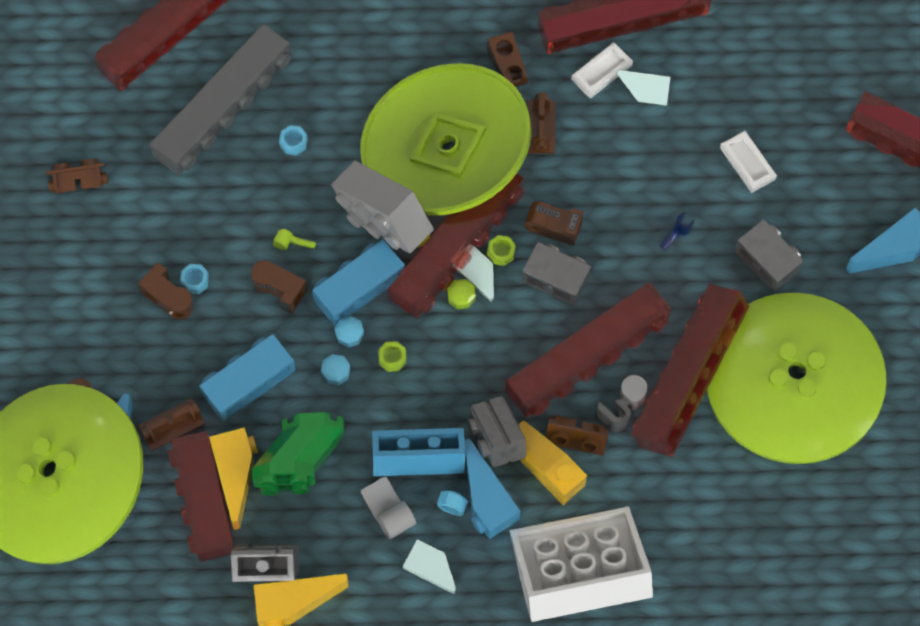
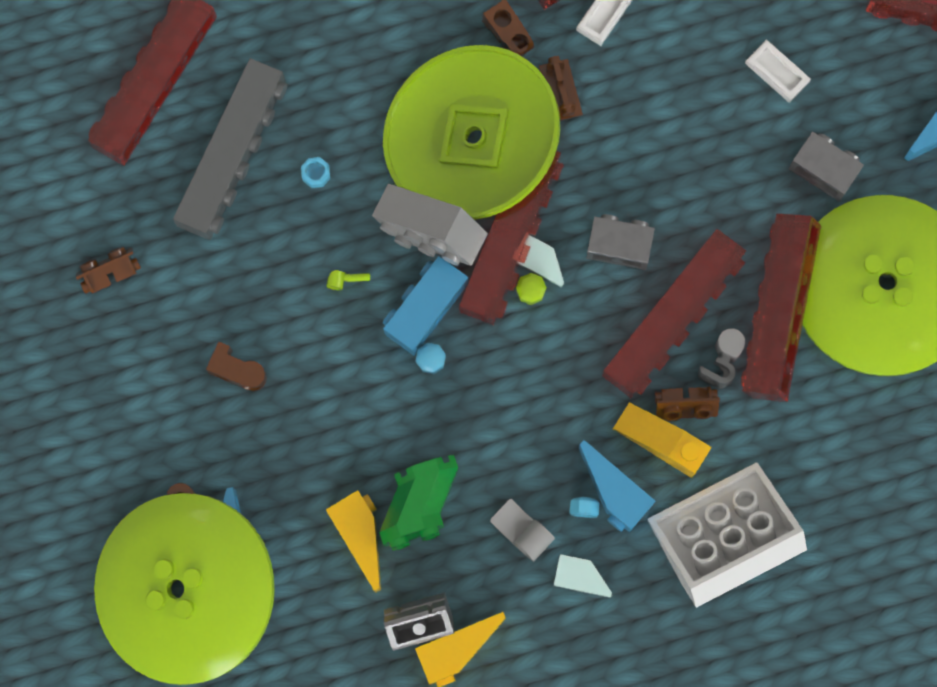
camera: 10 degrees left, 10 degrees up
(171, 424) = (282, 503): reddish brown hinge -> none
(194, 278) = (259, 346): medium azure tile -> none
(202, 495) = (336, 570): clear red brick -> none
(247, 377) = (343, 434): dark azure brick -> none
(279, 282) = (348, 327): reddish brown leg -> none
(335, 369) = (428, 401): medium azure tile -> none
(392, 356) = (481, 373): lime tile -> none
(418, 452) = (537, 467): dark azure brick -> none
(497, 432) = (609, 425): flat silver brick -> none
(501, 250) = (558, 232): lime tile -> none
(554, 222) = (602, 188): reddish brown leg -> none
(646, 87) = (656, 20): light aqua tile -> none
(679, 229) = (728, 161): clear blue hand -> none

